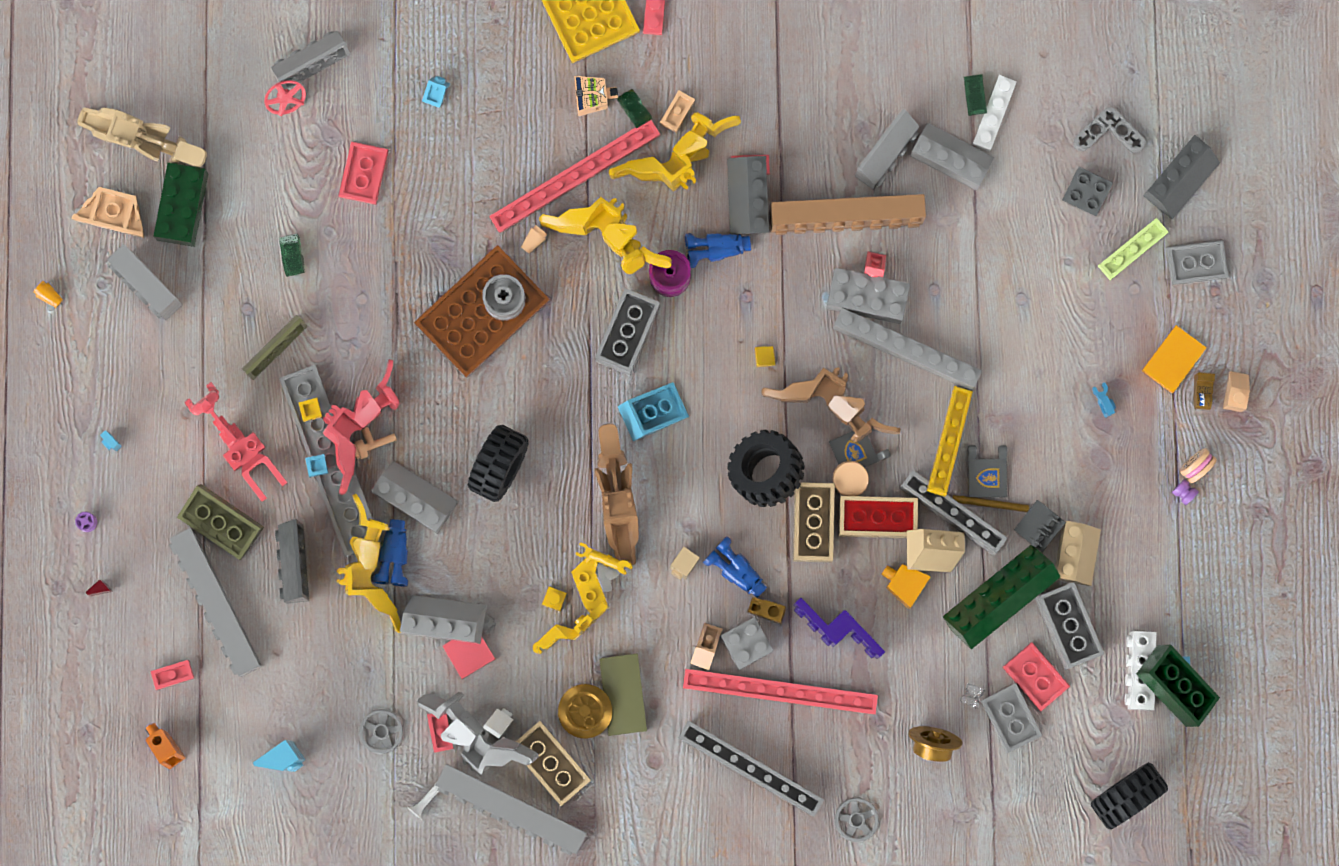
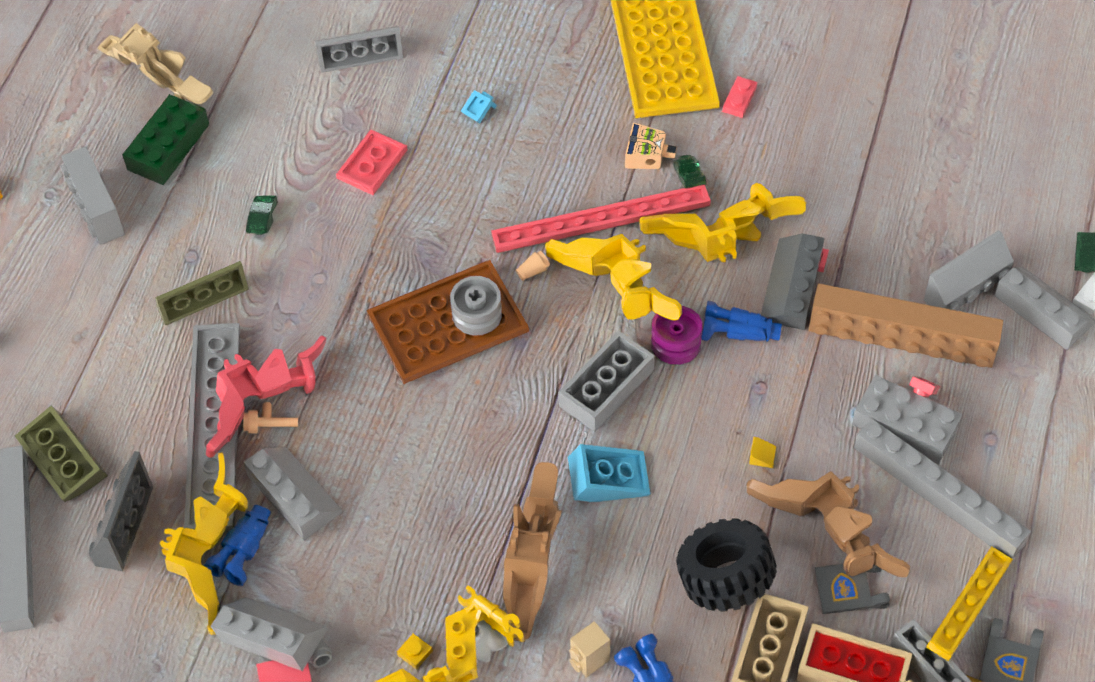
camera: 25 degrees right, 25 degrees down
(112, 211) = (94, 129): light nougat wing -> none
(243, 450) = (120, 386): coral piece -> none
(284, 97) = (317, 70): coral wheel -> none
(310, 409) = (212, 361): yellow plate -> none
(316, 465) = (194, 420): medium azure plate -> none
(498, 463) = (401, 466): black tyre -> none
(677, 111) = (736, 186): light nougat plate -> none
(850, 478) = (831, 610): light nougat head -> none

